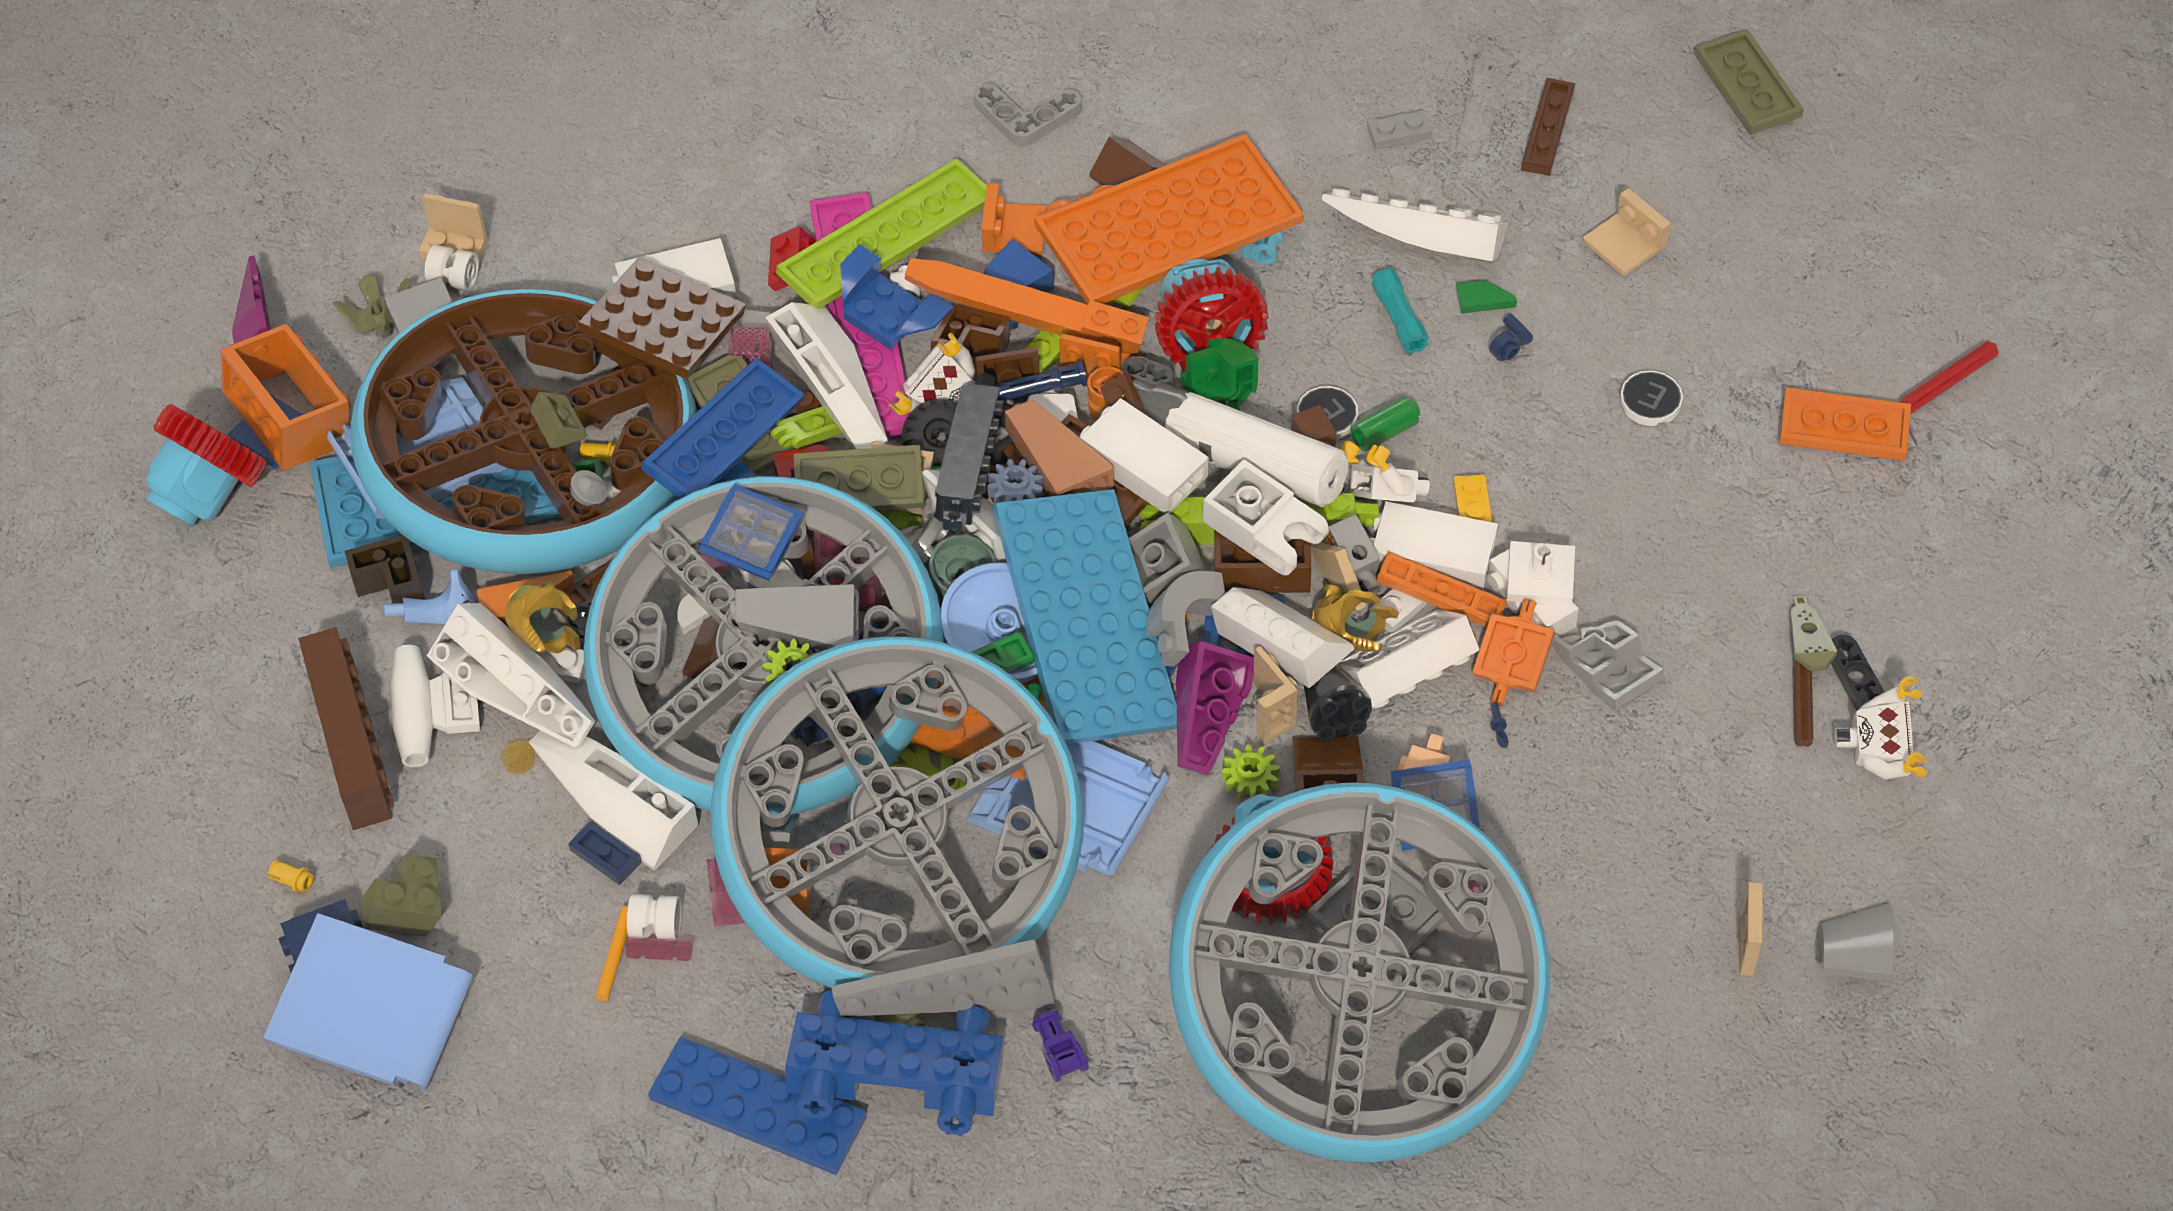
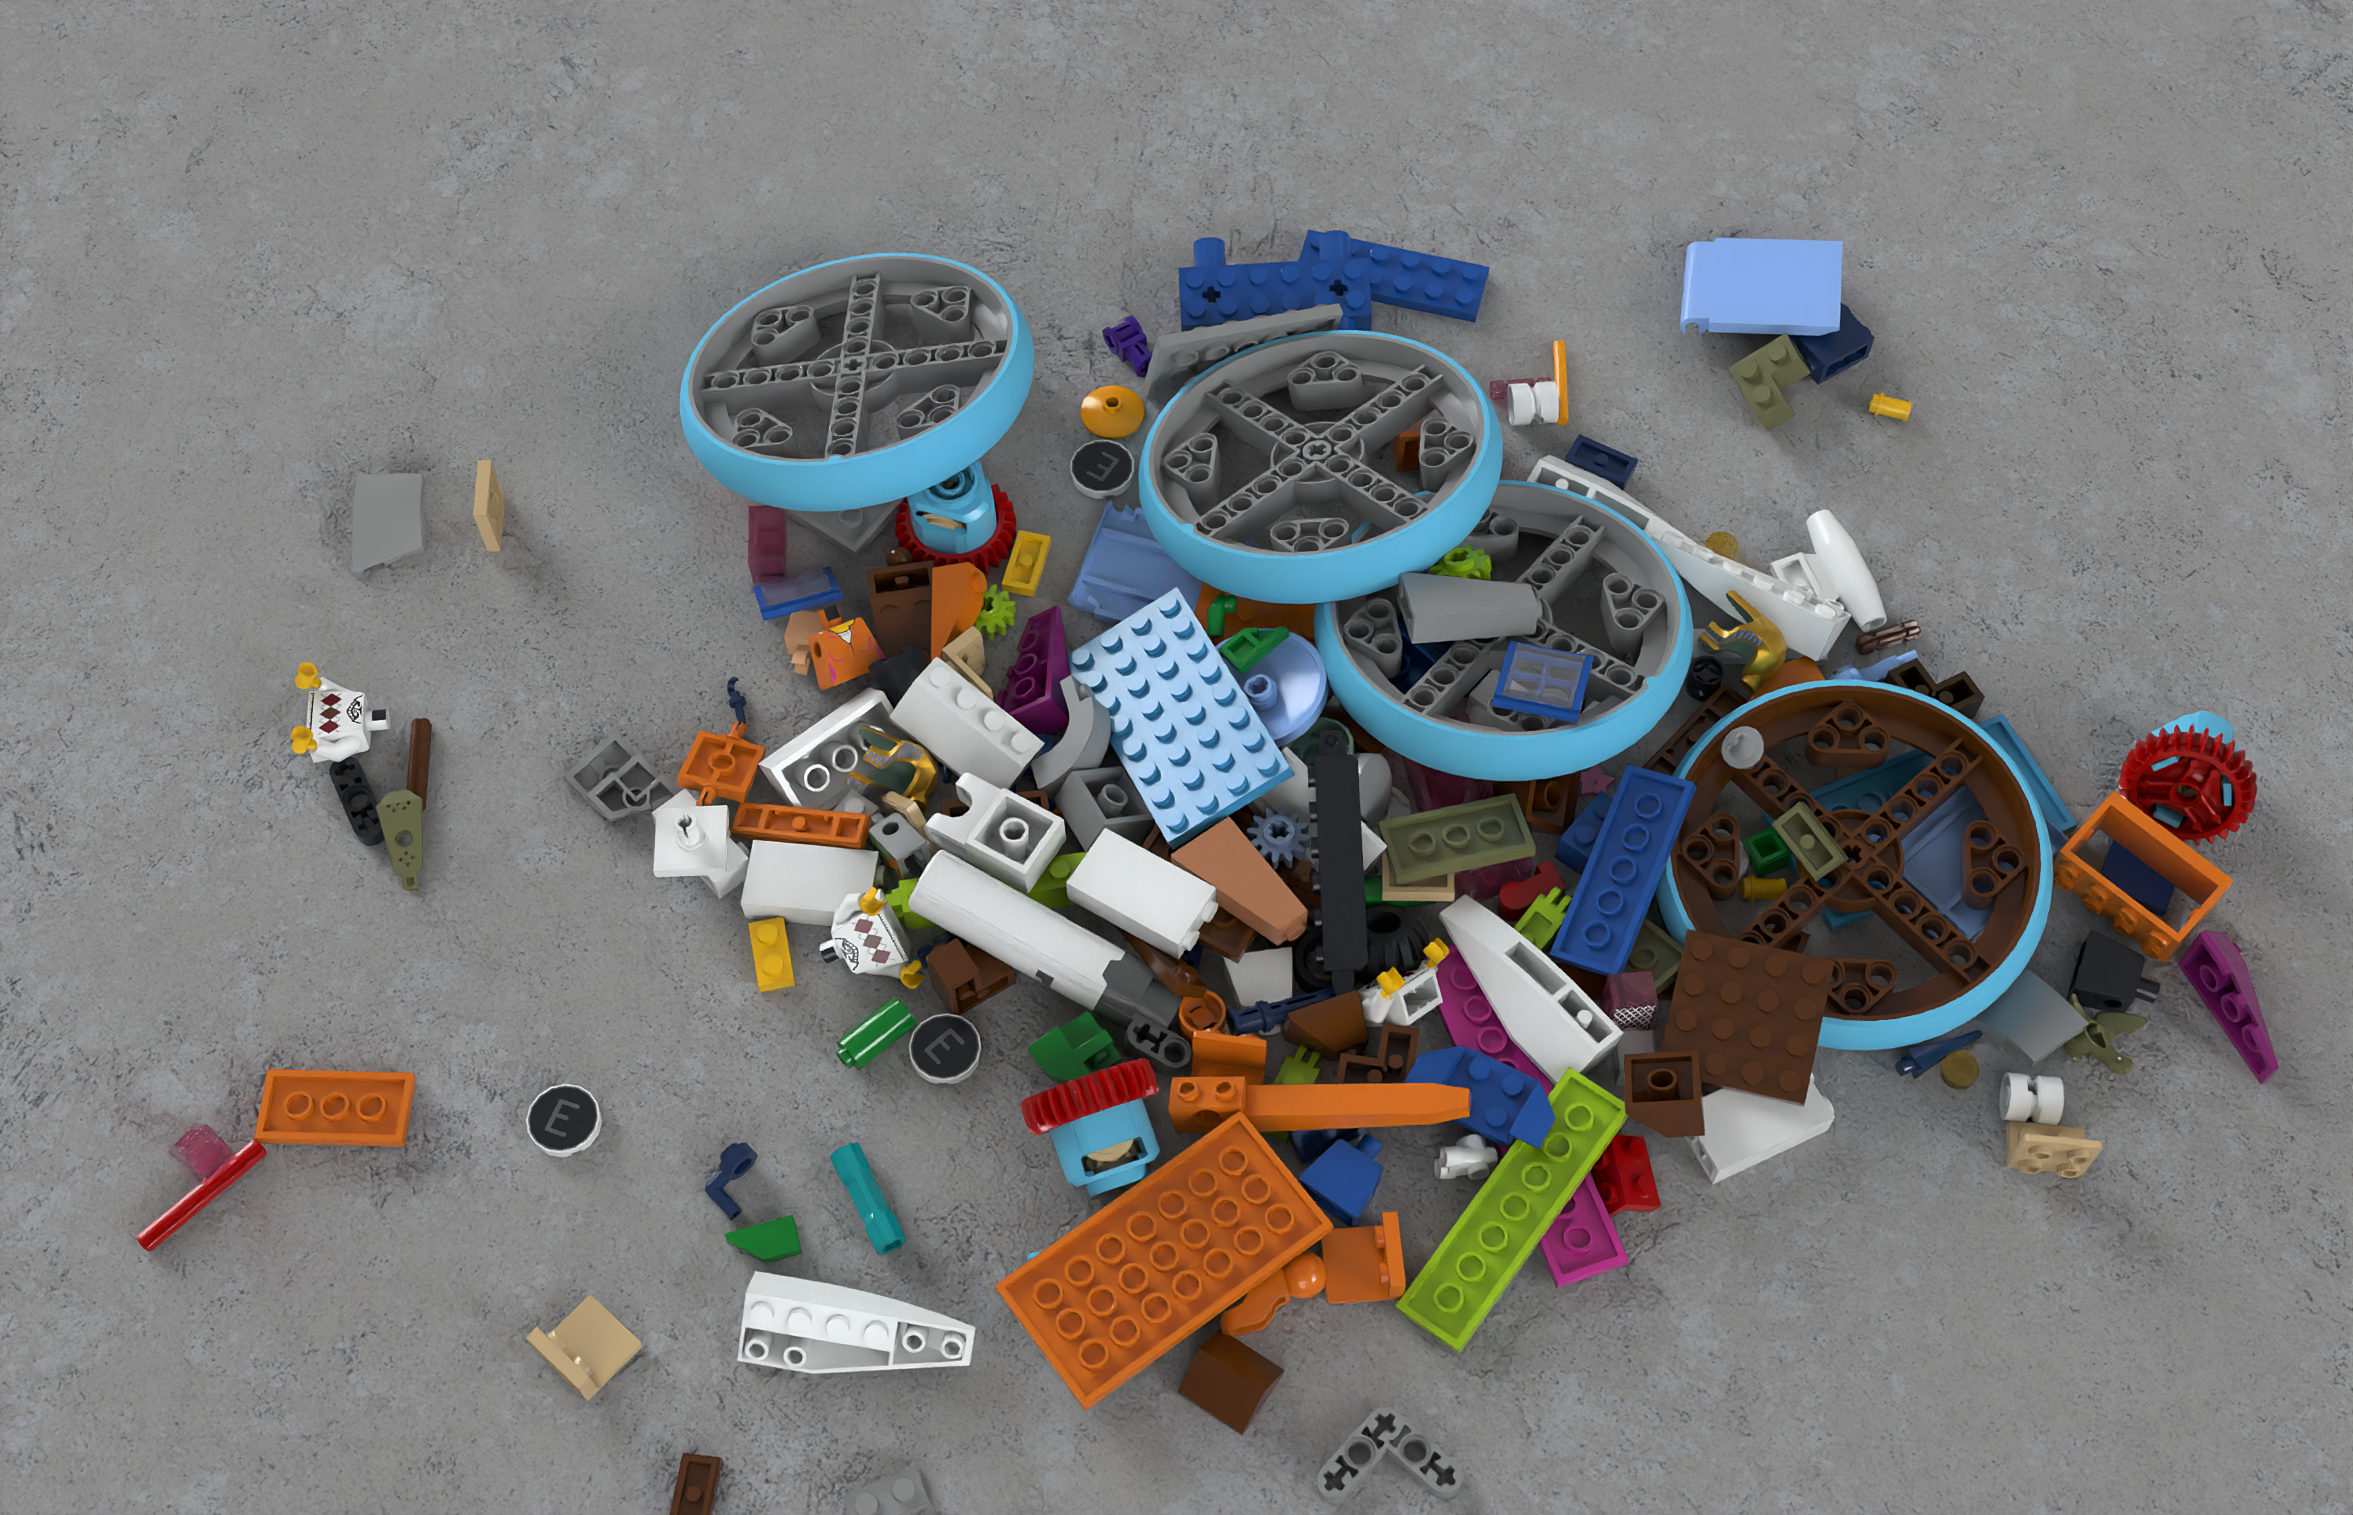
camera: 170 degrees right, 5 degrees up
(345, 347) = (2109, 975): none -> black torso
(347, 728) = (1900, 528): reddish brown brick -> none
(375, 654) = (1887, 637): none -> reddish brown axle
(747, 274) = (1665, 1092): none -> reddish brown slope
(1094, 998) = (1112, 421): none -> light orange dish
(1113, 917) = (1102, 469): none -> black tile
(1204, 820) = (1026, 563): none -> yellow plate
(1280, 756) = (955, 603): none -> orange slope
(1390, 731) = (842, 649): none -> orange torso
(1960, 396) = (201, 1150): none -> clear pink slope

